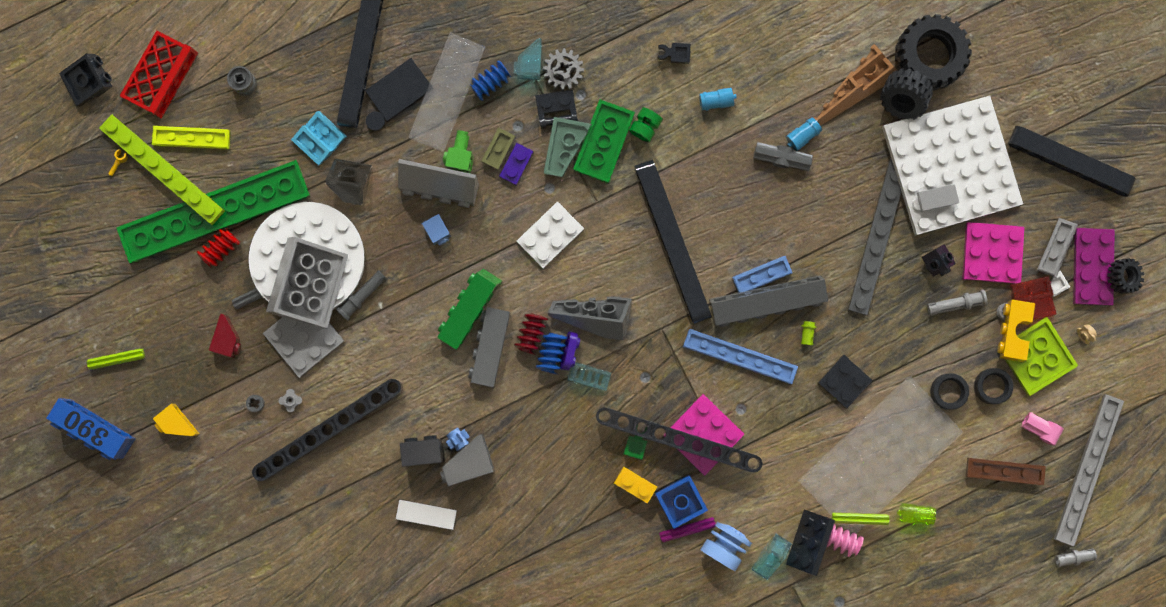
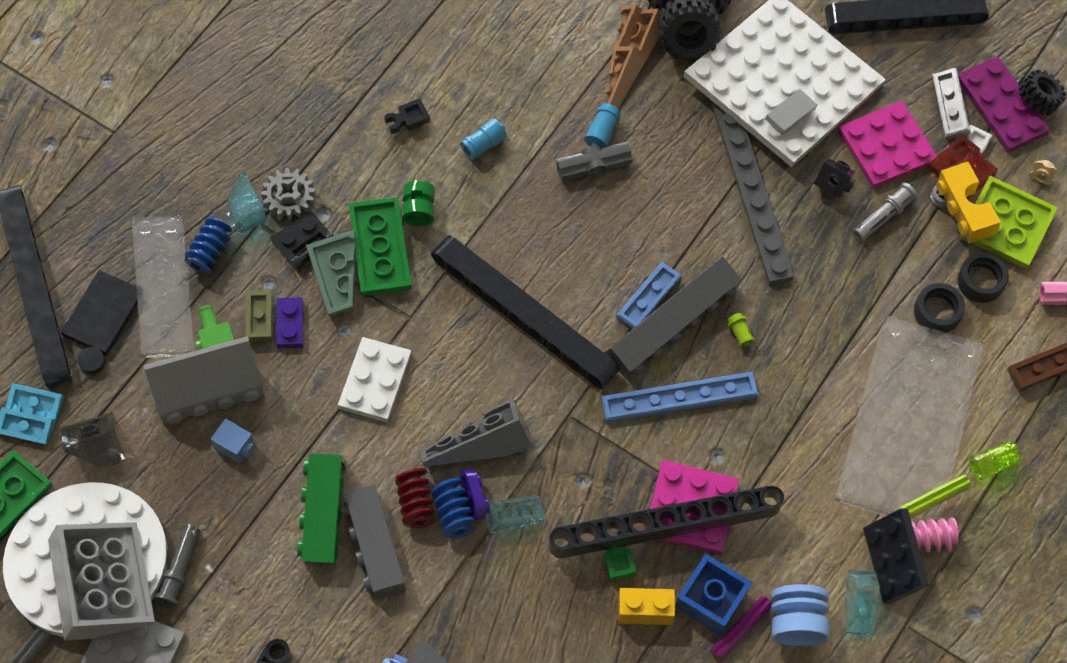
camera: 25 degrees left, 20 degrees down
(845, 381) = (816, 361): black plate -> none

